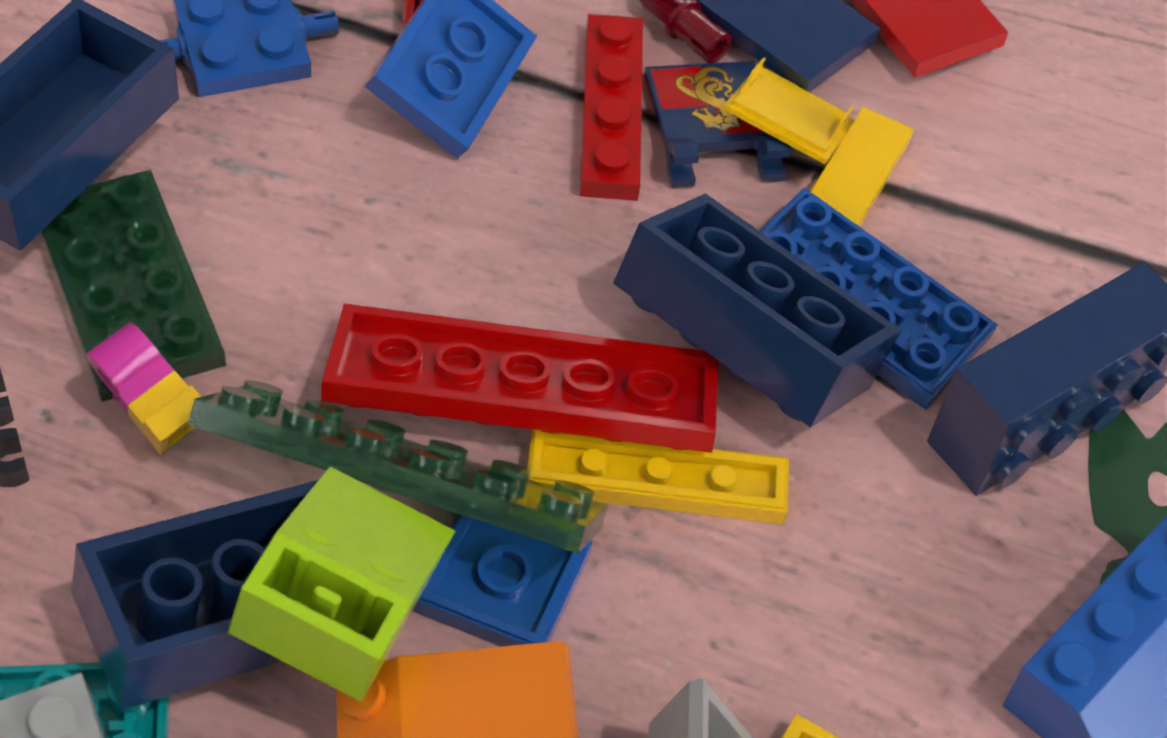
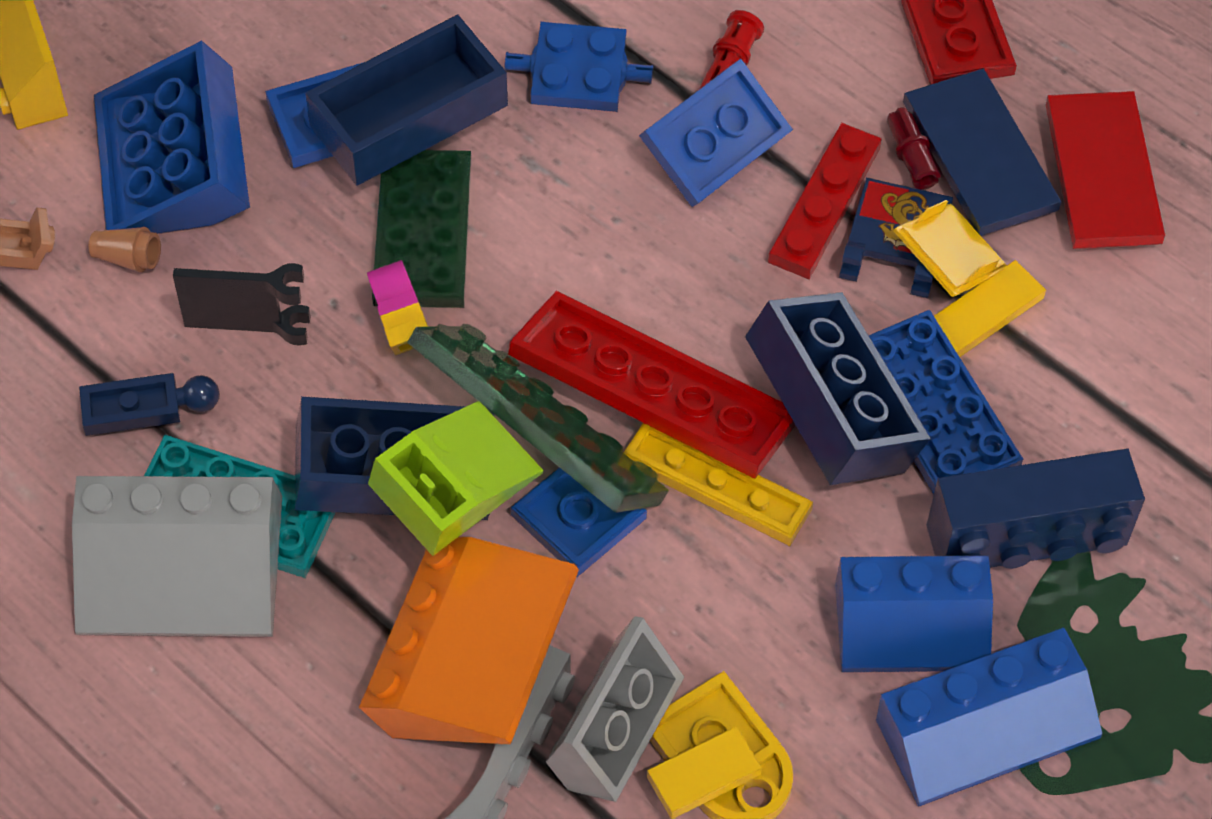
camera: 30 degrees right, 5 degrees up
(984, 552) = (913, 612): none -> blue slope

